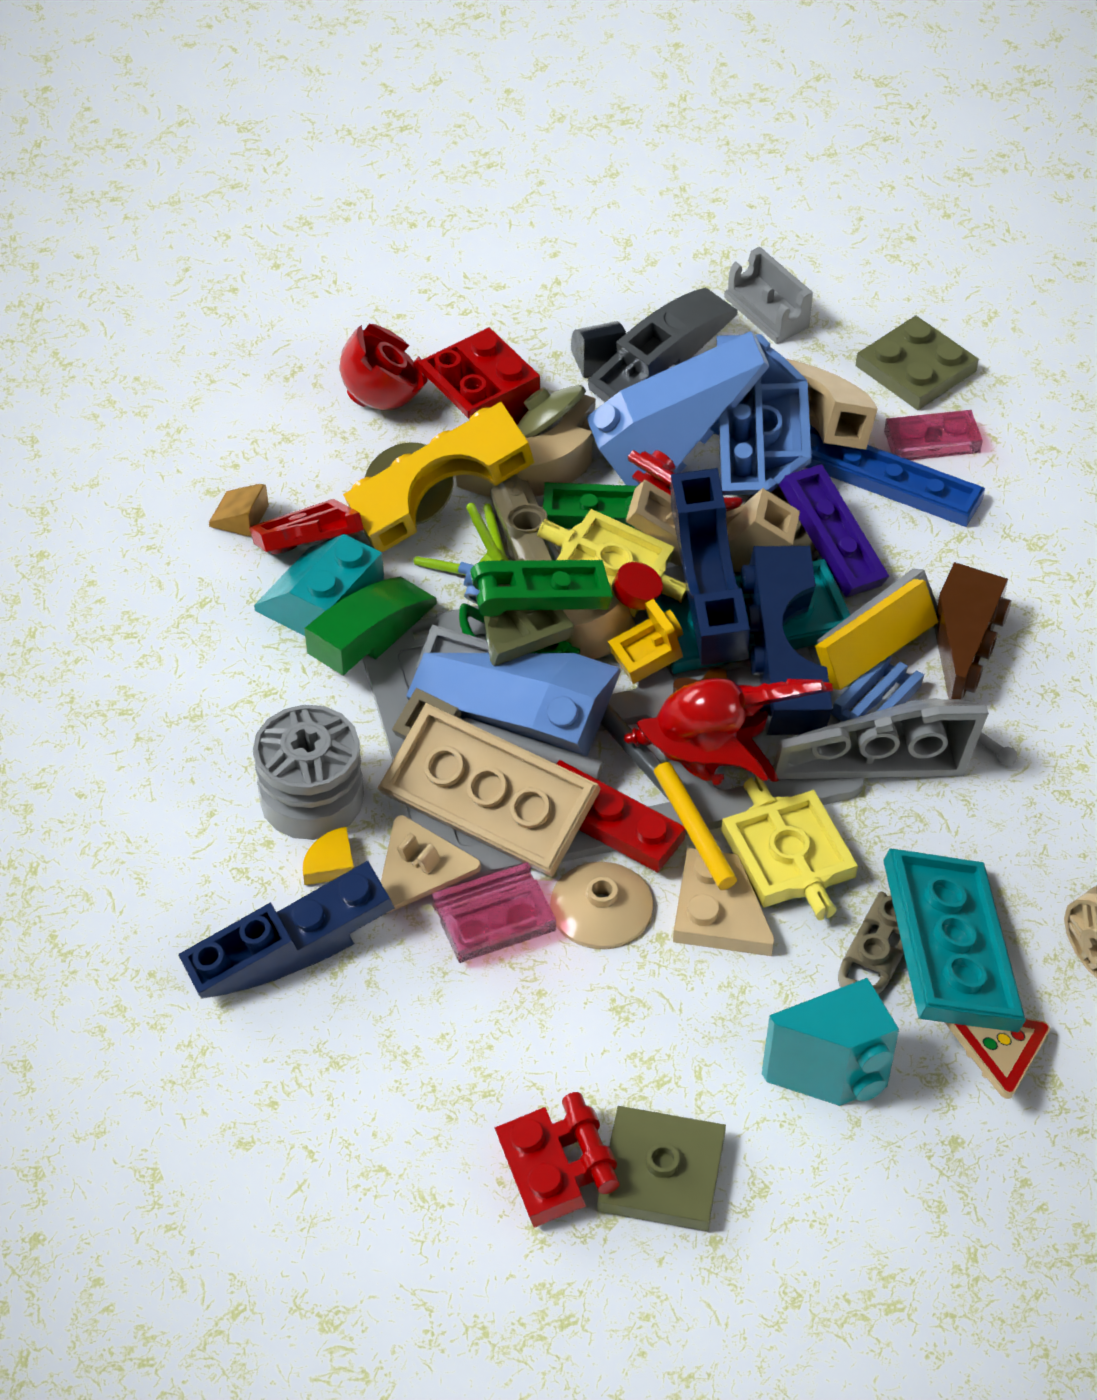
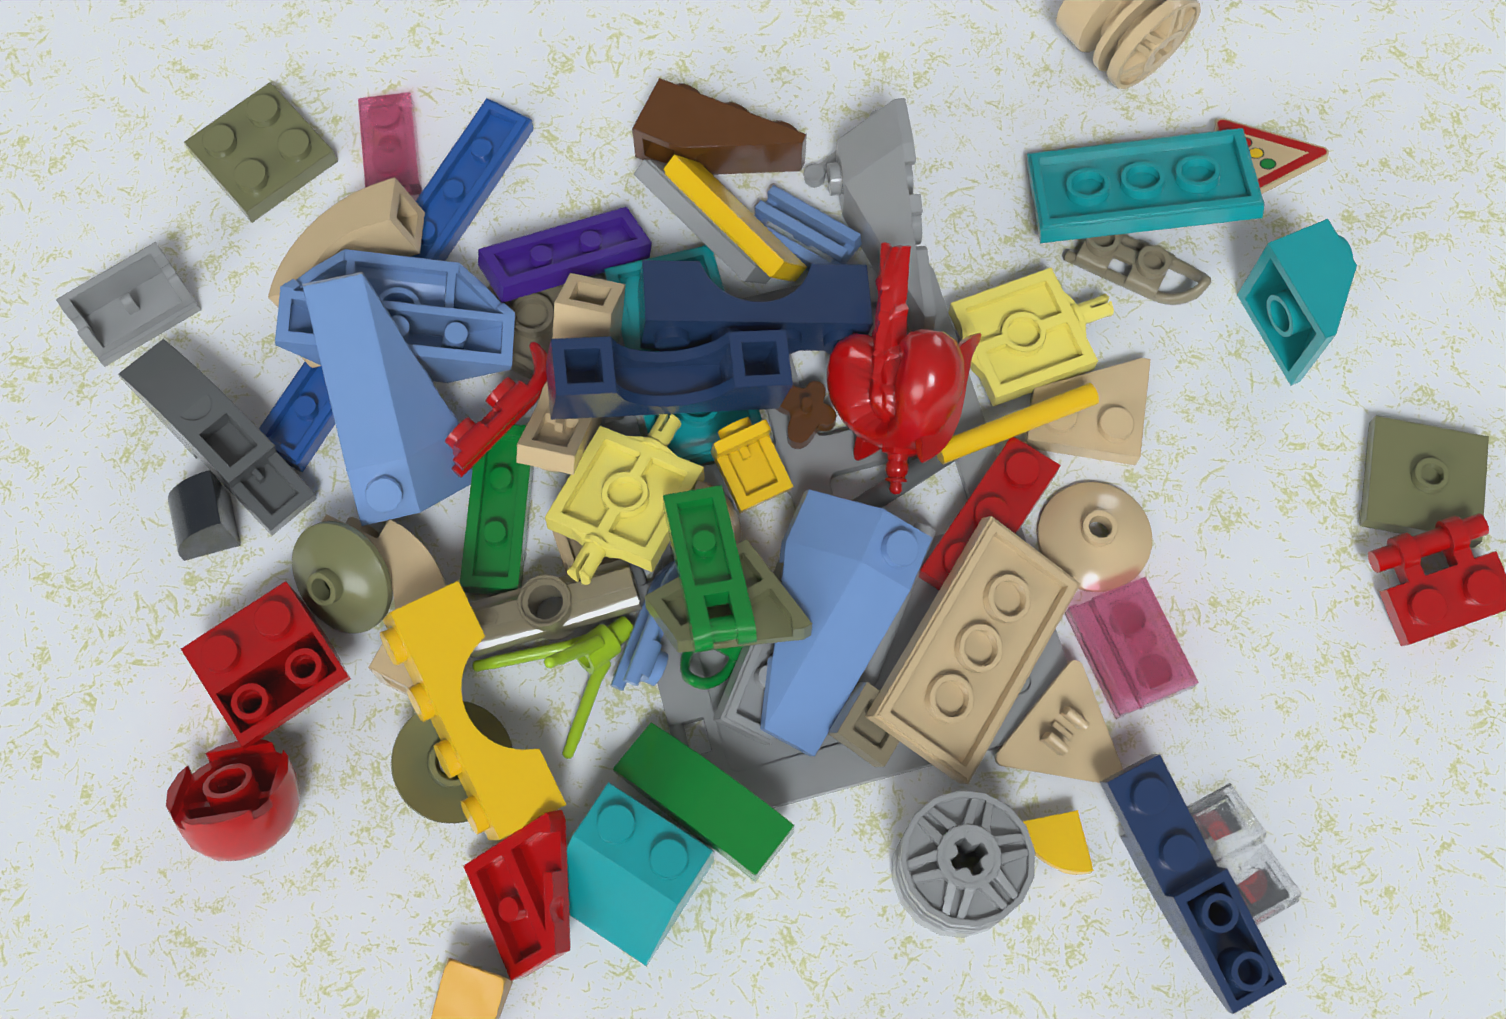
camera: 90 degrees left, 20 degrees up
(316, 983) = (1239, 845): none -> clear slope
(636, 585) = (689, 461): red tile -> none

